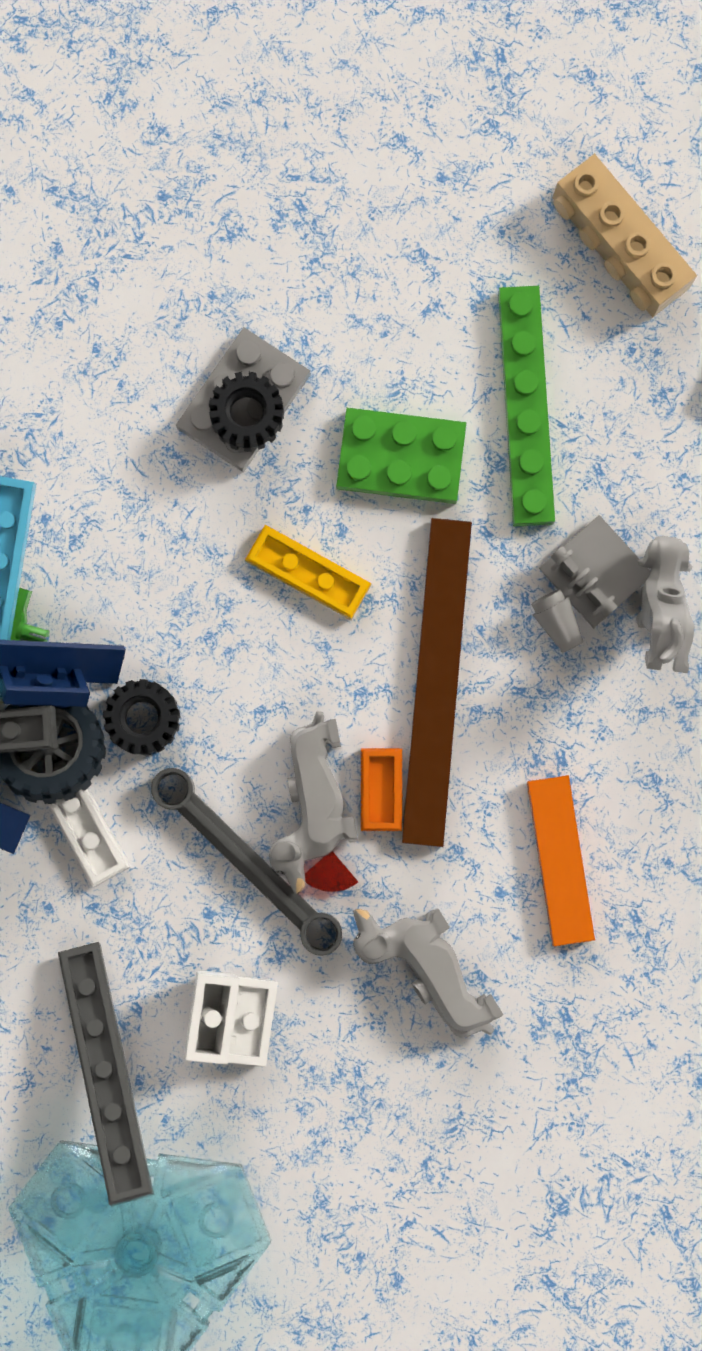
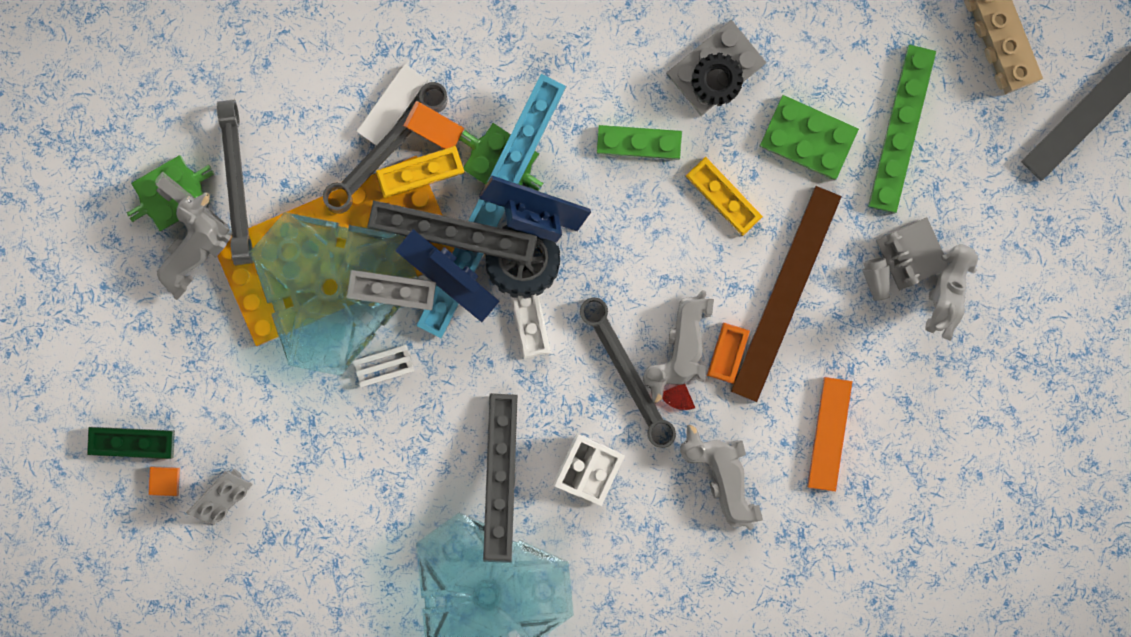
camera: 20 degrees right, 5 degrees up
(121, 702) = (593, 242): black tyre -> none
(166, 533) = (639, 142): none -> bright green plate

